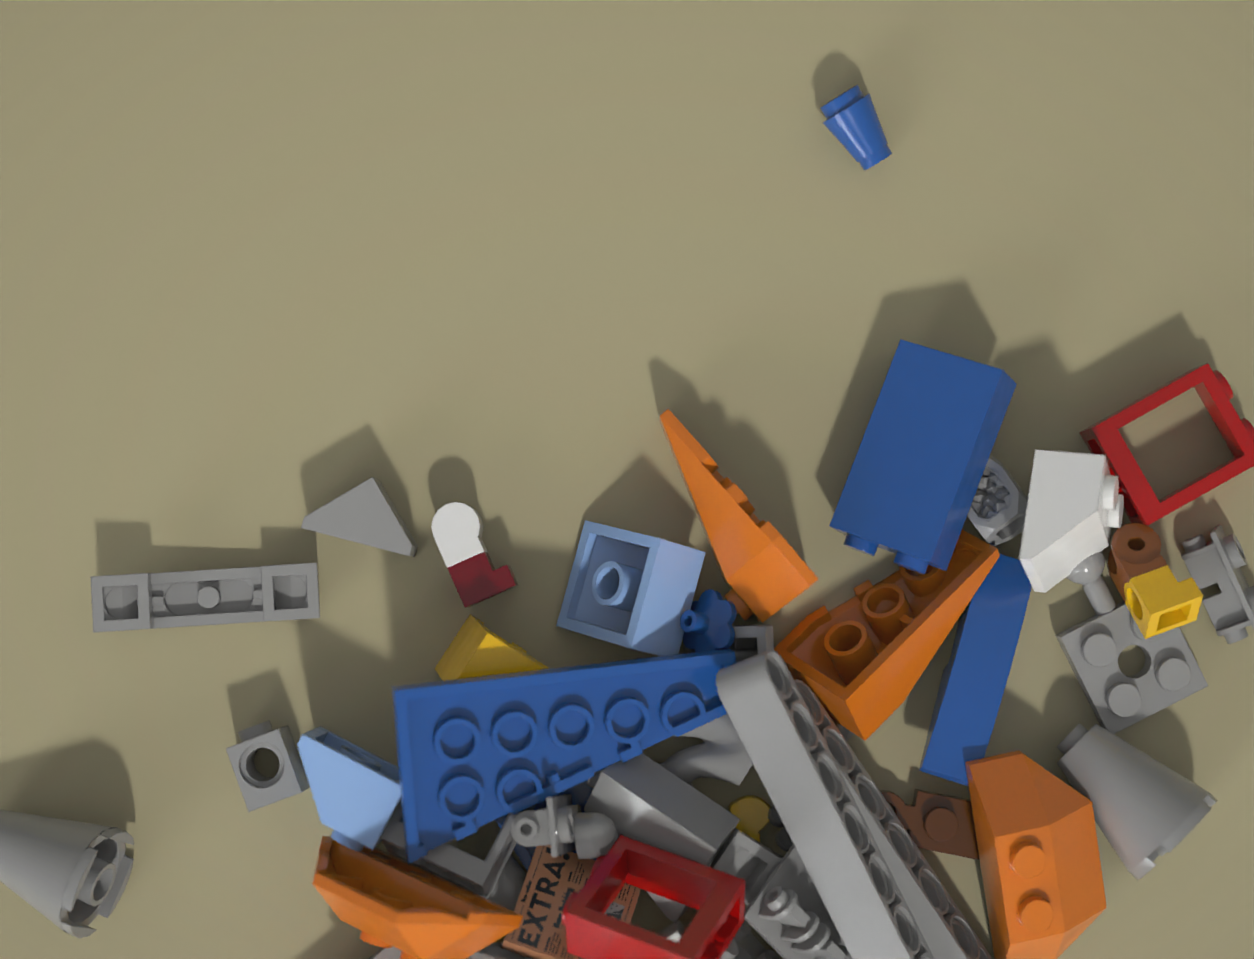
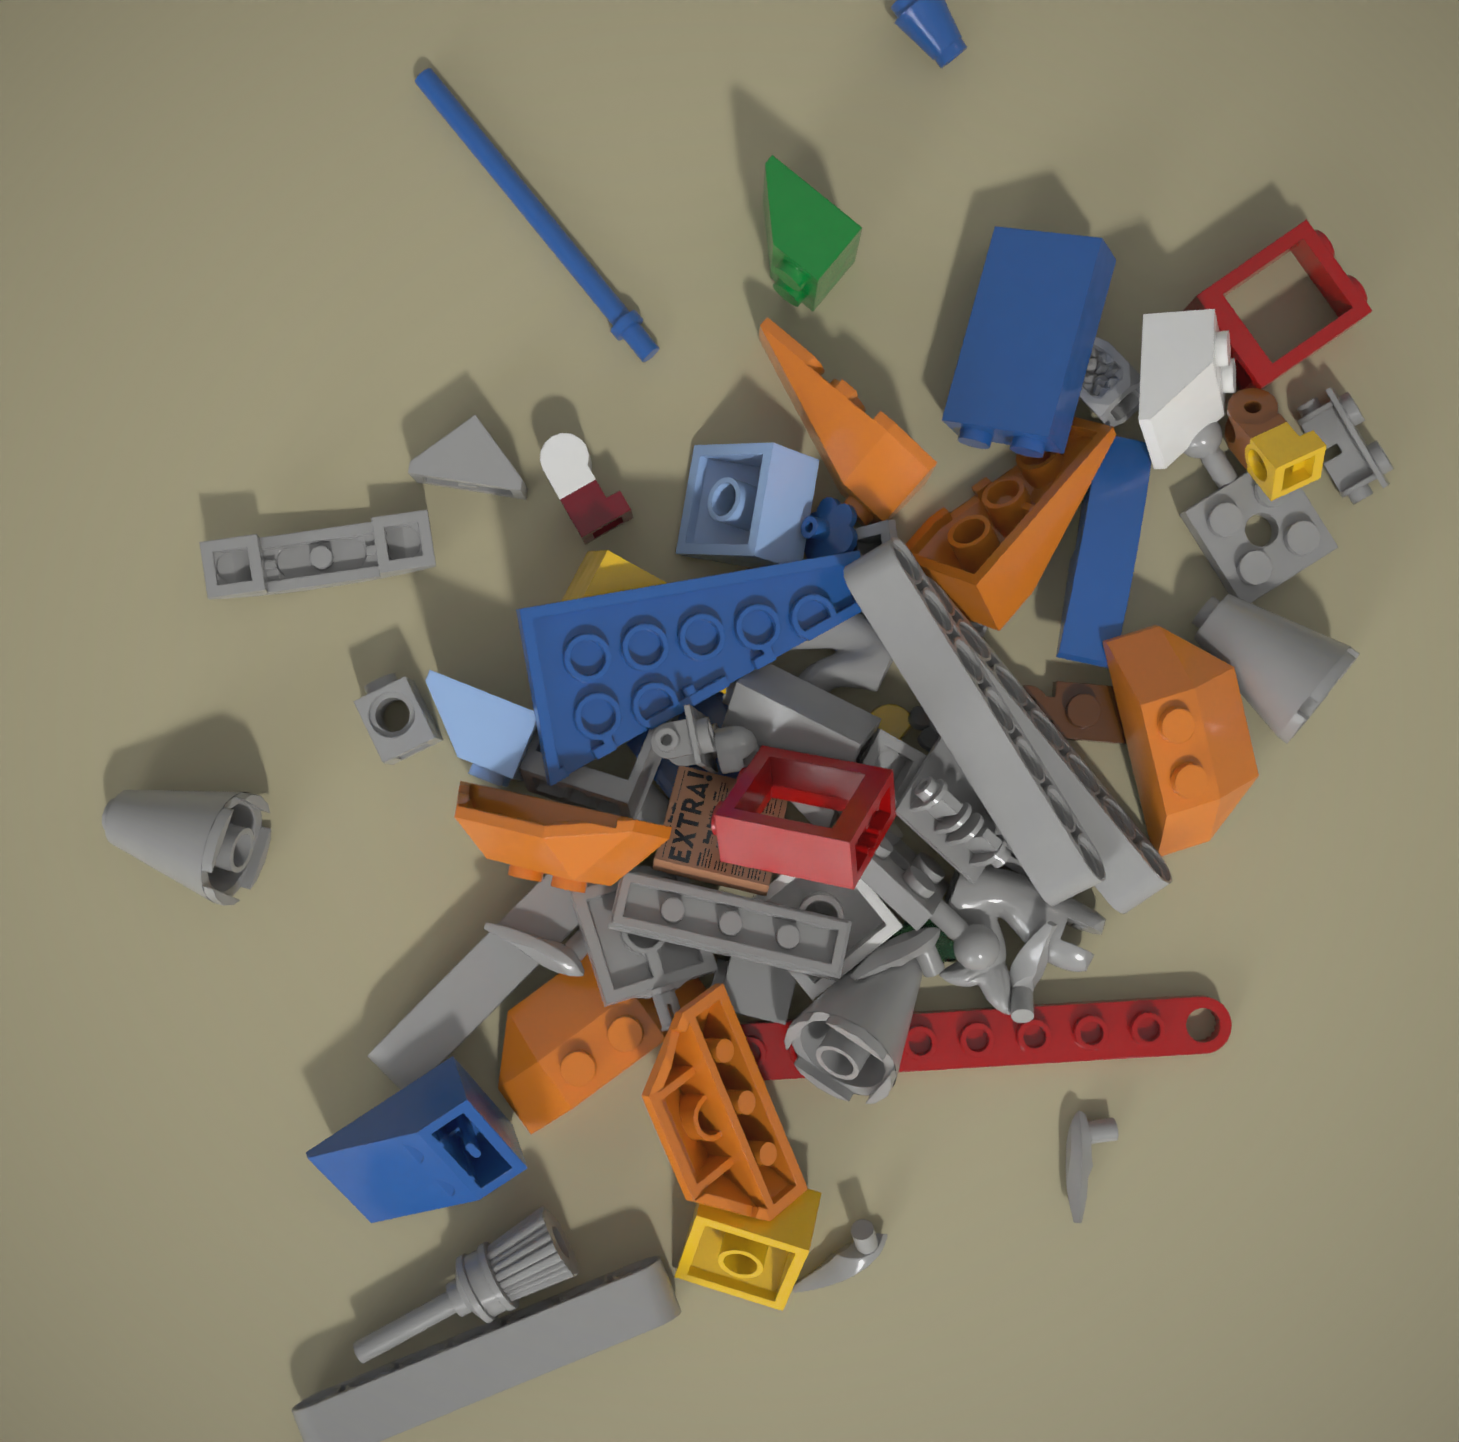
camera: 10 degrees left, 0 degrees up
(528, 392) = (625, 322): none -> blue bar
(711, 334) = (806, 237): none -> green slope

